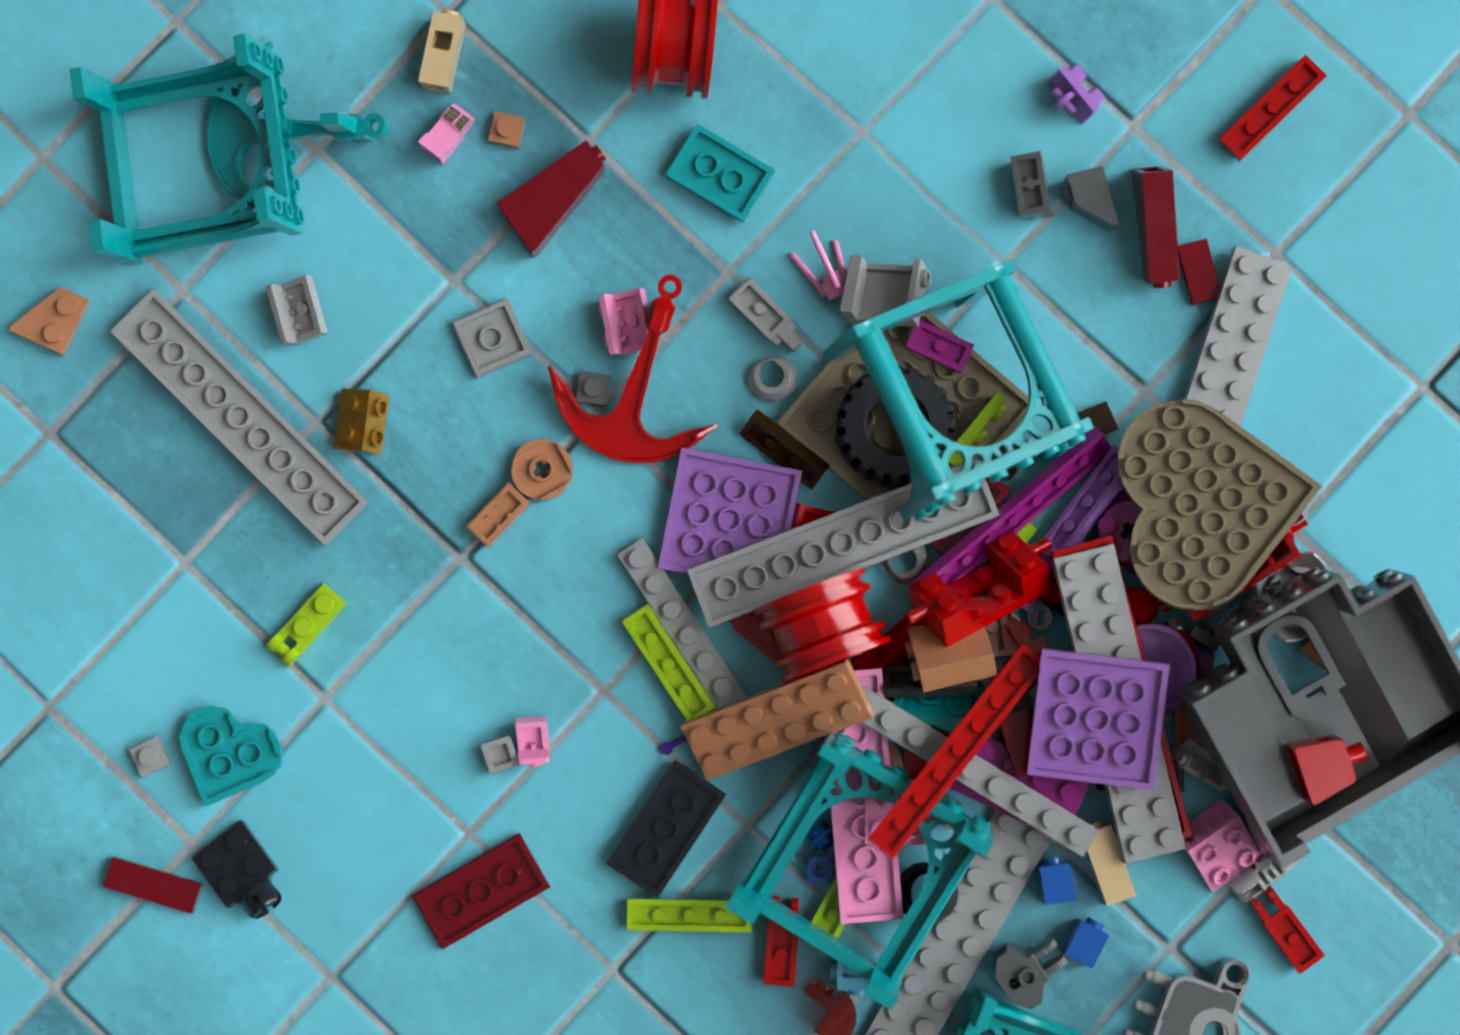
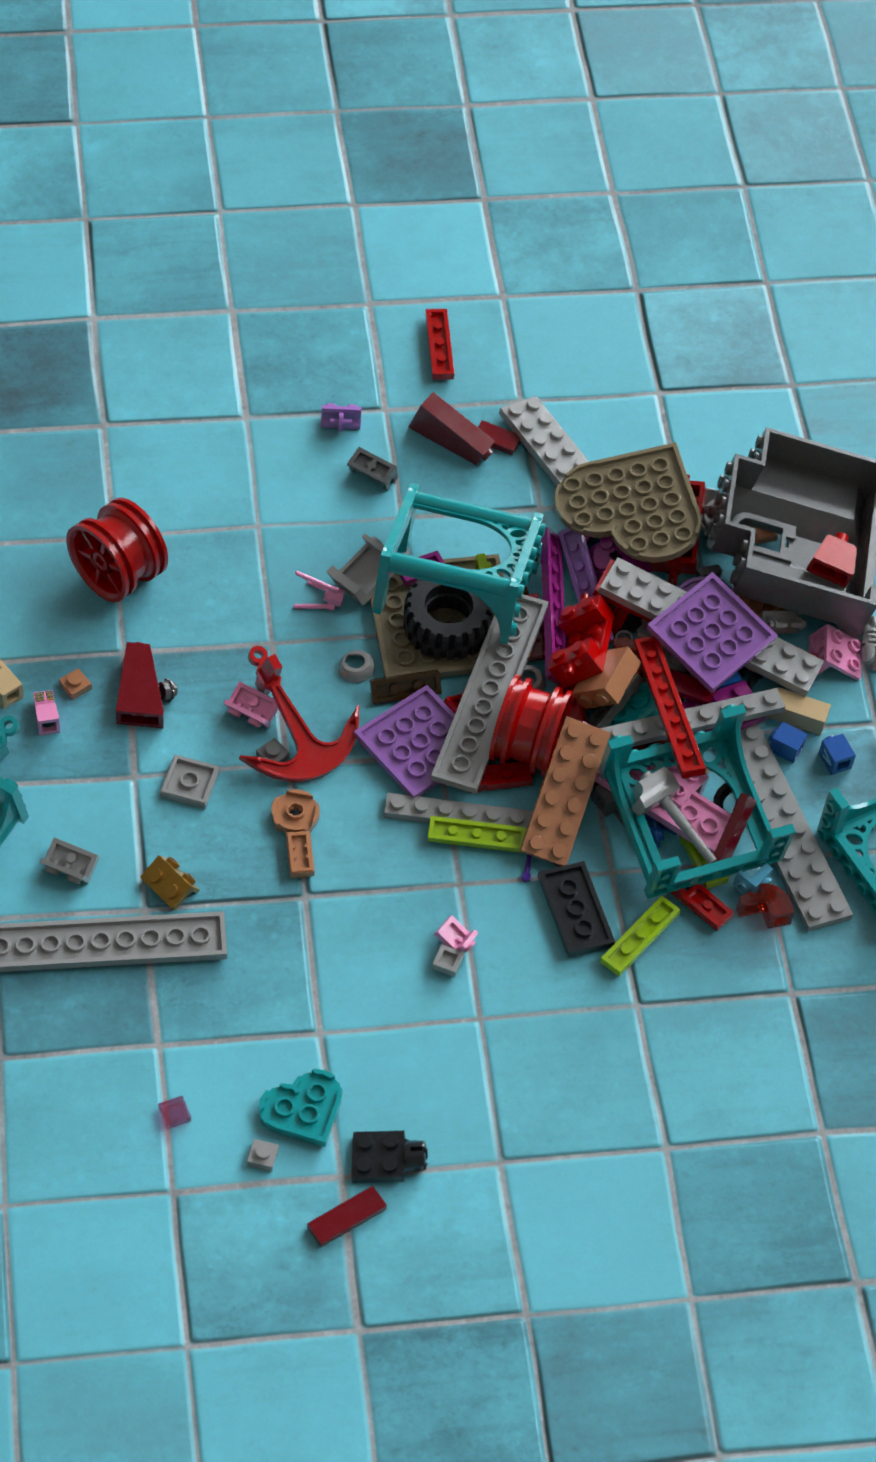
camera: 60 degrees left, 30 degrees down
(125, 639) = (174, 1112): none -> clear pink tile
(307, 624) = (265, 1004): lime plate -> none
(481, 891) = (523, 1037): dark red tile -> none
(575, 224) = (168, 689): none -> dark grey plate
(720, 173) = (212, 601): teal plate -> none
(765, 314) = (317, 639): light grey hinge -> none
(813, 874) = (674, 846): blue plate -> none
(845, 817) = (659, 789): none -> light grey piece
(873, 924) = (735, 827): none -> dark red tile
(1026, 970) = (816, 792): dark grey hinge -> none
(1091, 197) = (408, 450): dark grey slope -> none

